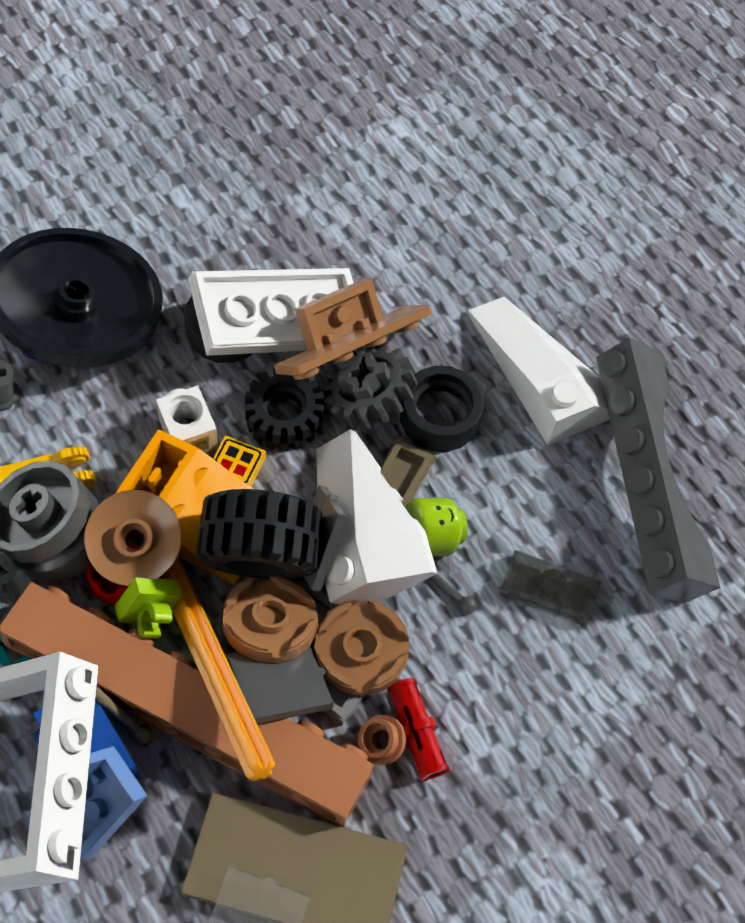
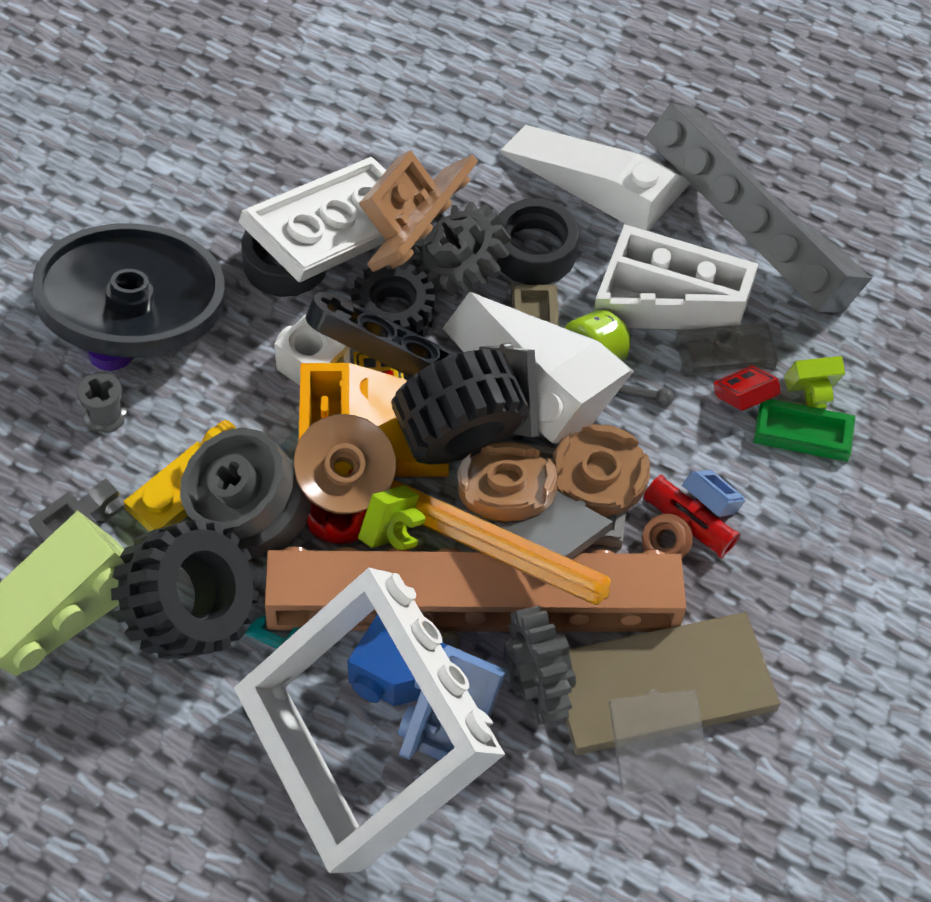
camera: 25 degrees left, 5 degrees down
(185, 803) = (539, 665): none -> dark grey gear
(247, 451) = (372, 334): none -> black beam
(448, 718) = (714, 492): none -> medium blue tile
(530, 506) = (673, 283): none -> white wedge
(542, 634) = (747, 388): none -> red tile
(574, 698) = (804, 429): none -> green tile
(610, 657) = (816, 379): none -> lime tile

